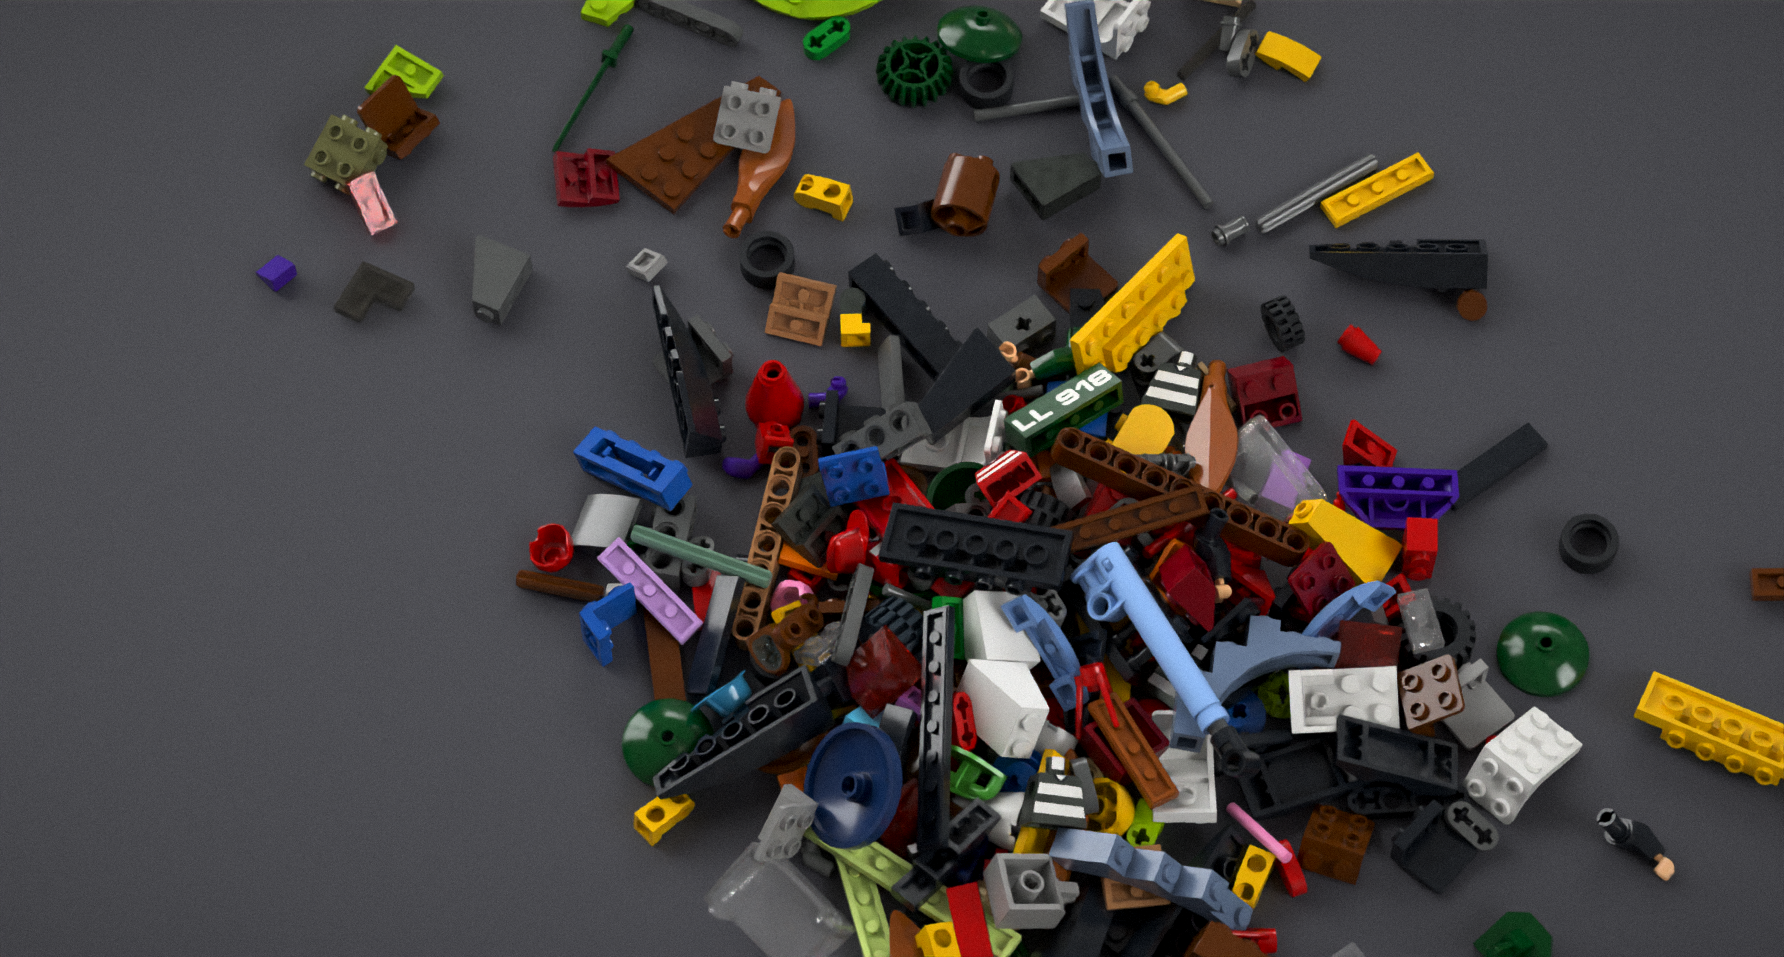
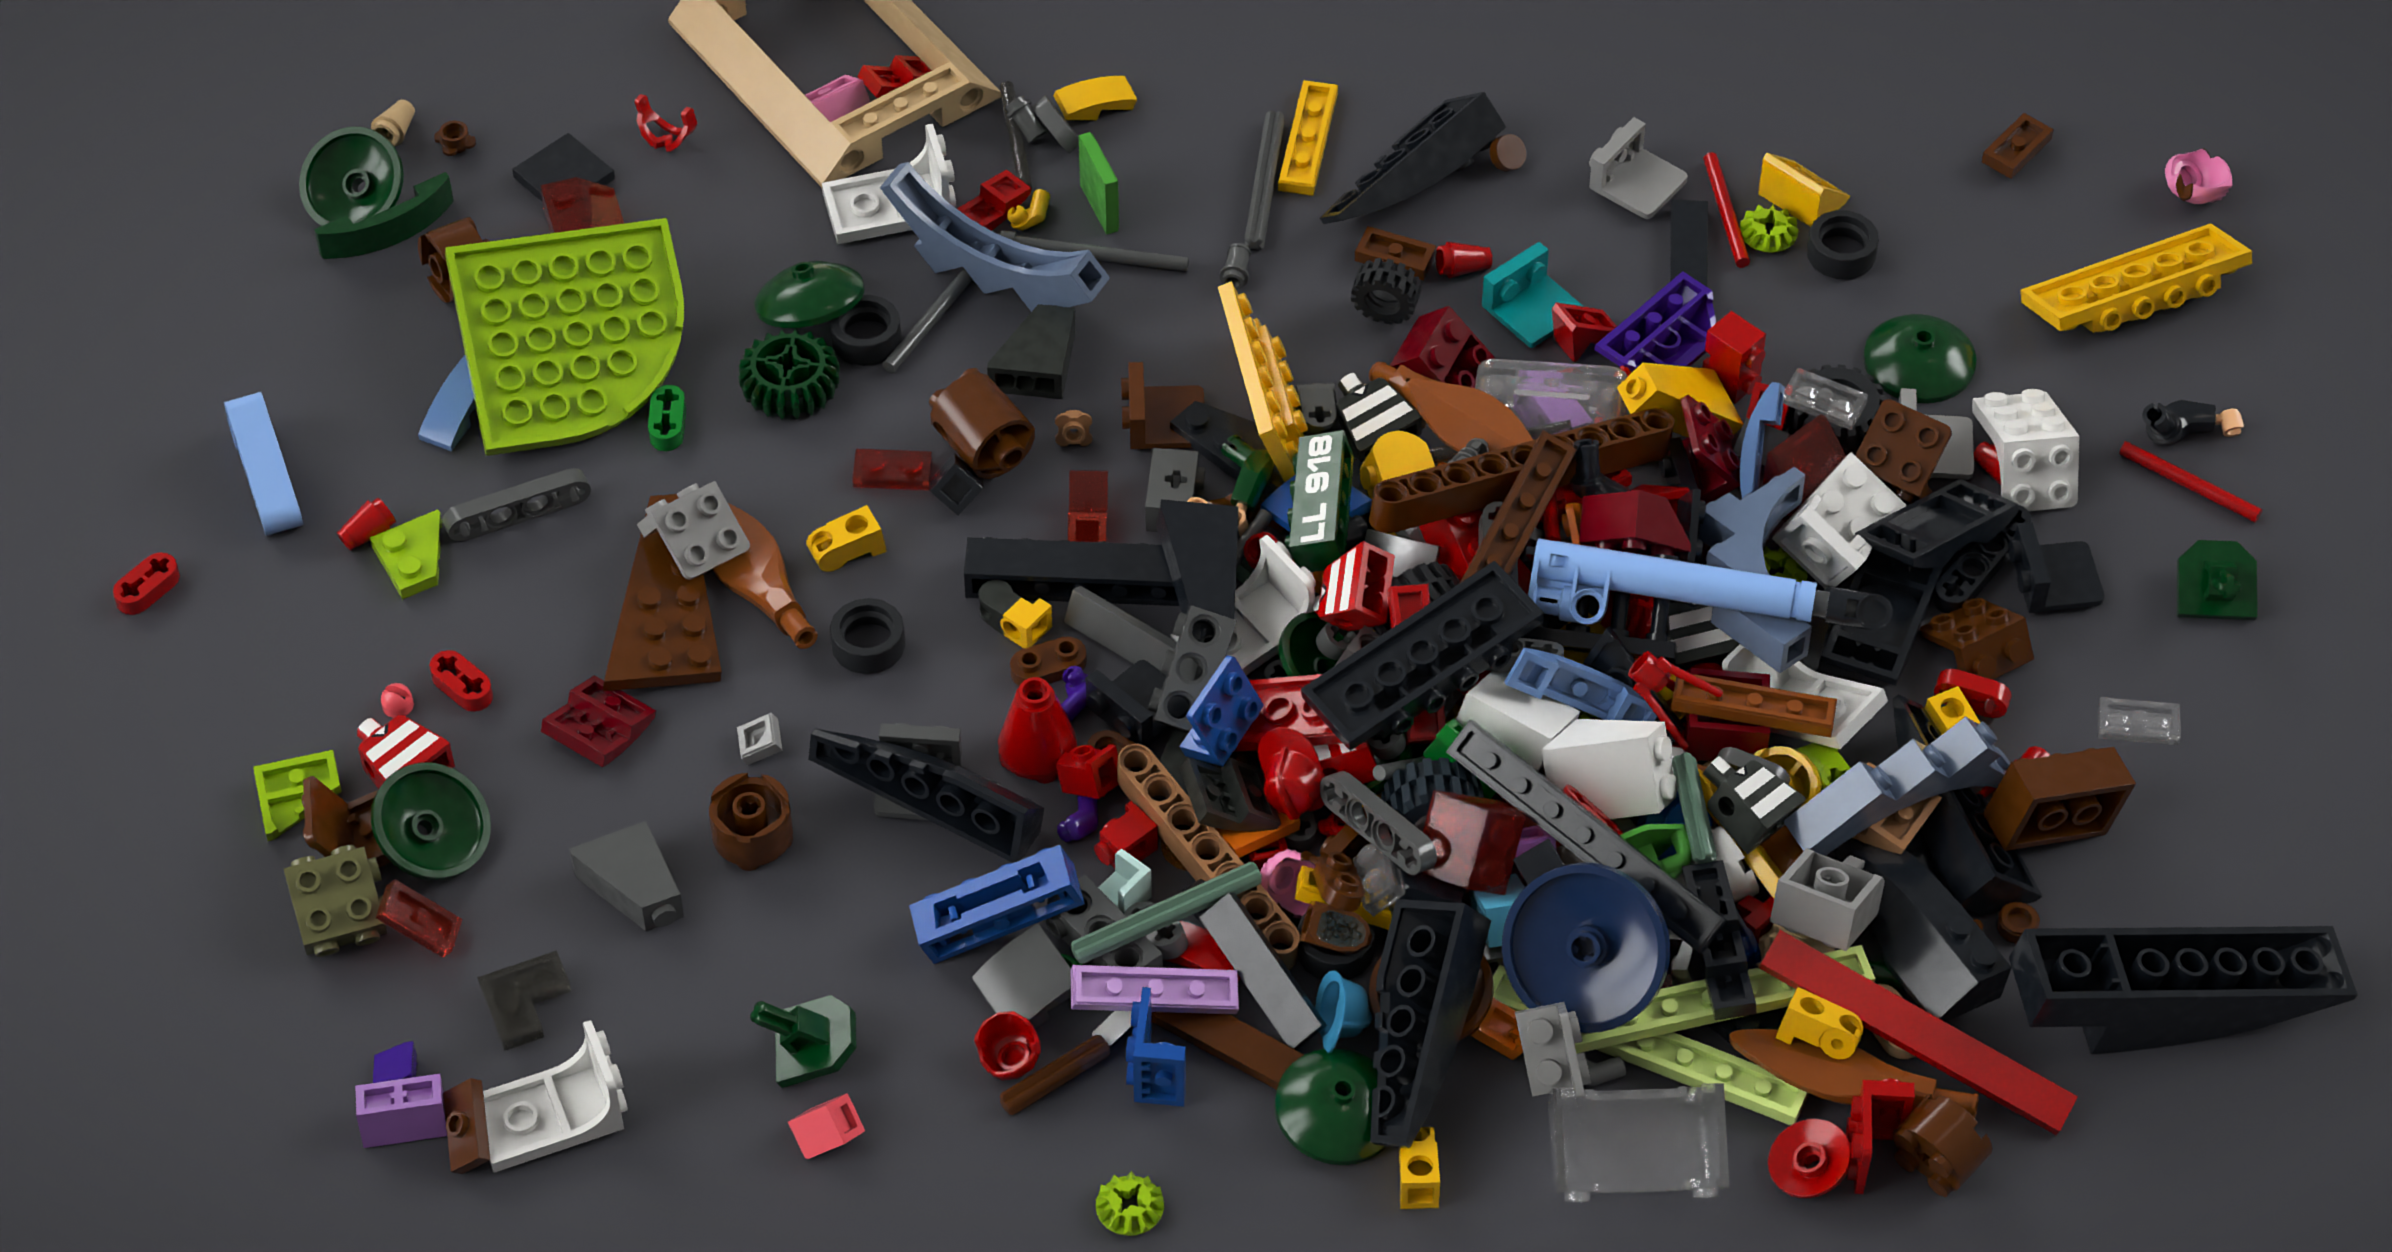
camera: 50 degrees left, 10 degrees down
(250, 295) = (400, 1110): none -> medium lavender hinge
(266, 332) = (466, 1126): none -> reddish brown plate
(314, 362) = (556, 1106): none -> white bracket
(423, 502) = (826, 1126): none -> coral panel
(442, 134) = (444, 805): none -> dark green dish
(468, 107) = (399, 745): none -> torso
(470, 446) = (809, 1037): none -> dark green piece
(500, 697) = (1133, 1219): none -> lime gear
(503, 74) = (393, 703): none -> coral hinge
(545, 91) = (466, 675): none -> red beam
(582, 304) = (750, 820): none -> reddish brown brick
(609, 58) = (482, 606): dark green sword -> none
(715, 523) = (1128, 883): none -> light aqua panel
(745, 498) = (1130, 832): none -> red brick
(800, 309) = (955, 647): medium nougat slope -> none
(839, 362) = (1048, 660): none -> reddish brown plate
(901, 177) = (892, 469): none -> clear red plate
(962, 303) = (1088, 505): none -> clear red slope
(1018, 243) = (1073, 420): none -> medium nougat plate
(1020, 773) = (1694, 808): none -> sand green axle
(1159, 67) = (996, 199): none -> red slope
(1210, 110) = (1099, 183): none -> bright green tile
(1259, 832) = (1930, 683): bright pink bar -> none
(1327, 305) = (1387, 245): none -> reddish brown plate
(1363, 397) = (1524, 295): none -> teal bracket
(1476, 820) = (2058, 521): dark grey beam -> none
(1527, 386) = (1632, 174): none -> light grey bracket
(1555, 458) = (1726, 210): none -> red bar
(1560, 504) = (1780, 238): none -> lime gear
(1593, 878) = (2190, 481): none -> red bar
(1615, 486) = (1798, 189): none -> yellow slope

